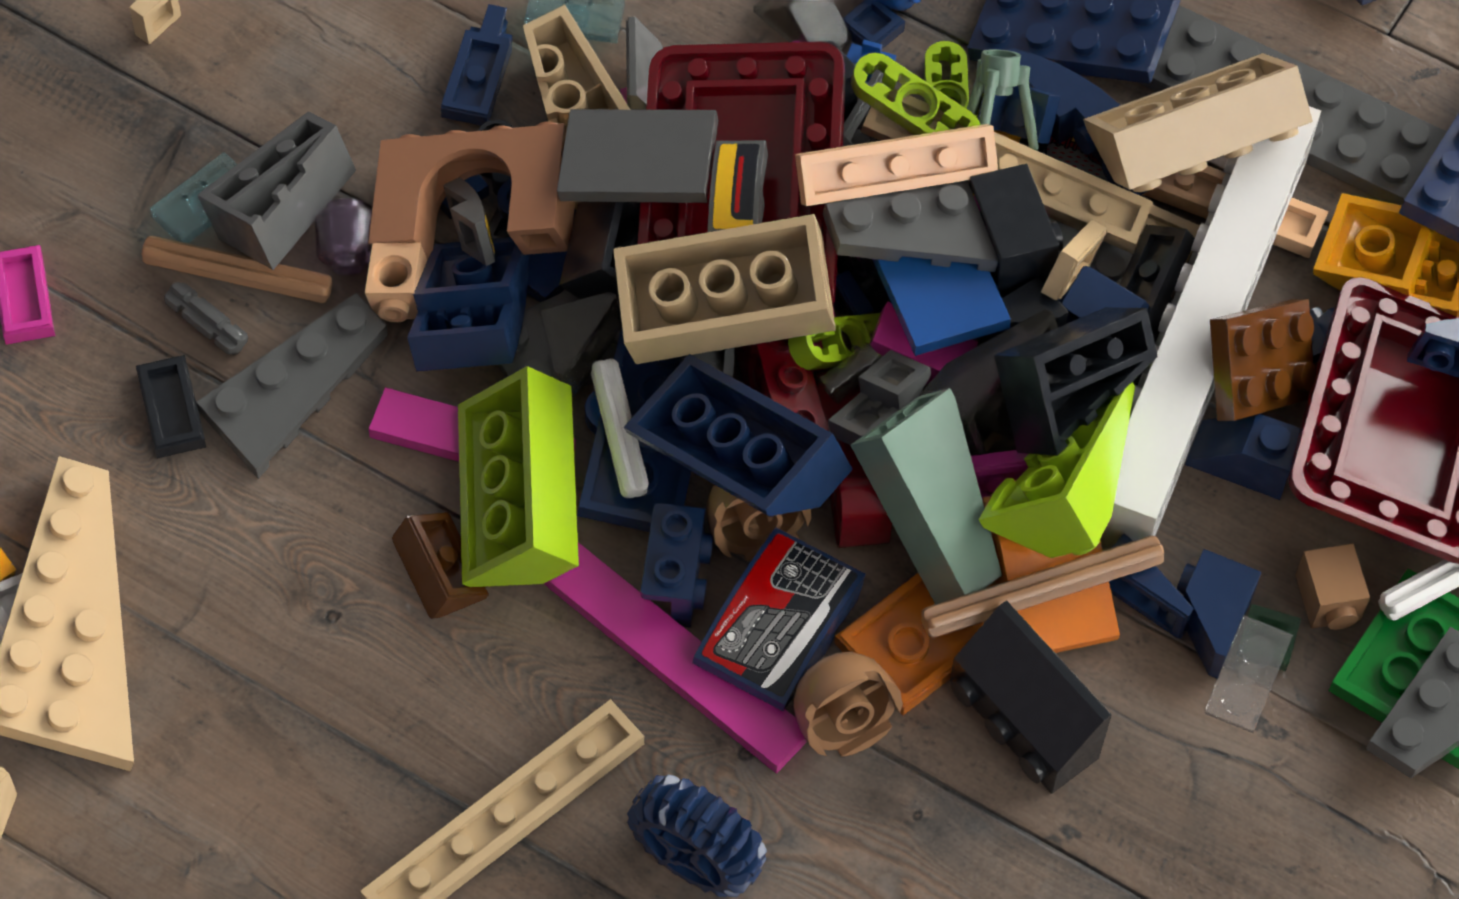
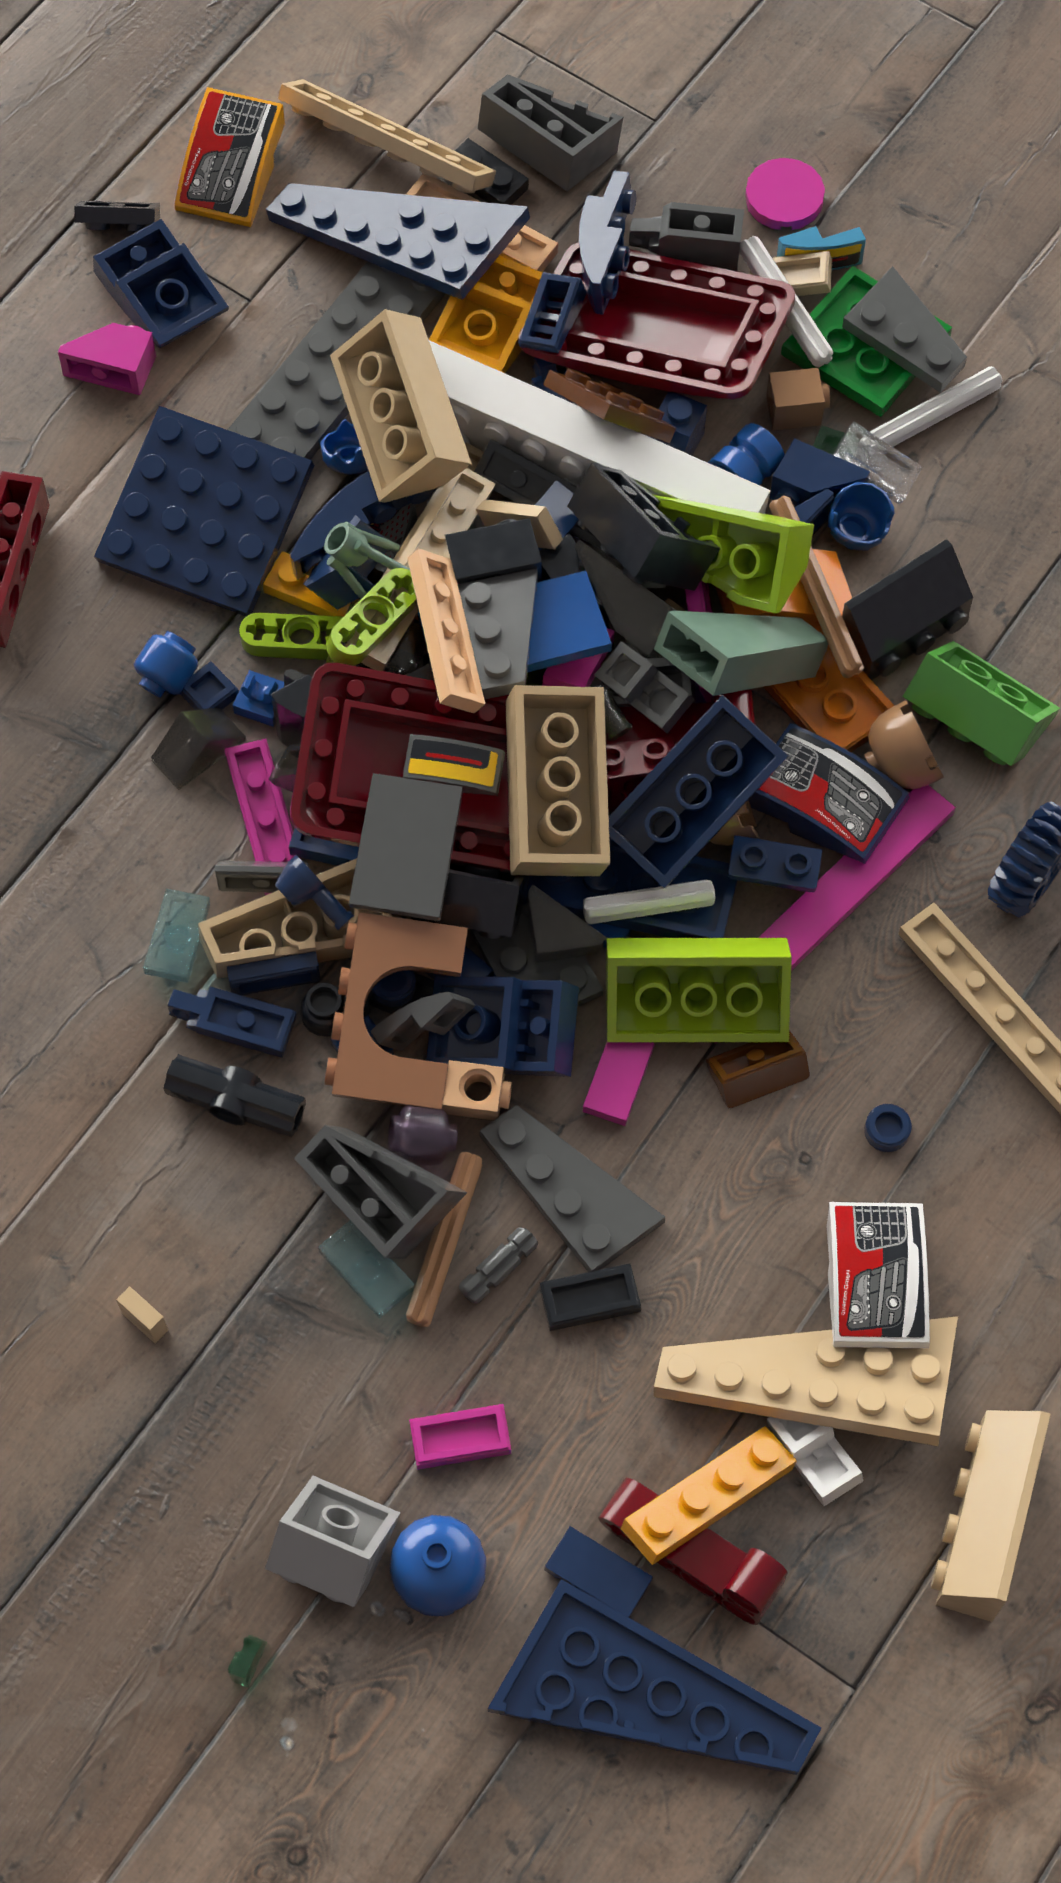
camera: 85 degrees left, 5 degrees up
(177, 672) = (878, 1275): none -> slope
(366, 696) = (887, 1127): none -> dark blue tile
(392, 73) = (234, 1095): none -> black piece
(527, 85) = (274, 973): none -> dark blue tile
(609, 82) = (301, 884): none -> dark blue bar
(924, 795) = (979, 703): none -> bright green slope
(1166, 655) = (860, 516): none -> blue hair
(1221, 524) = (750, 454): none -> blue wheel
(1346, 750) = (939, 407): none -> white axle
(1415, 300) = (552, 286): none -> dark blue slope

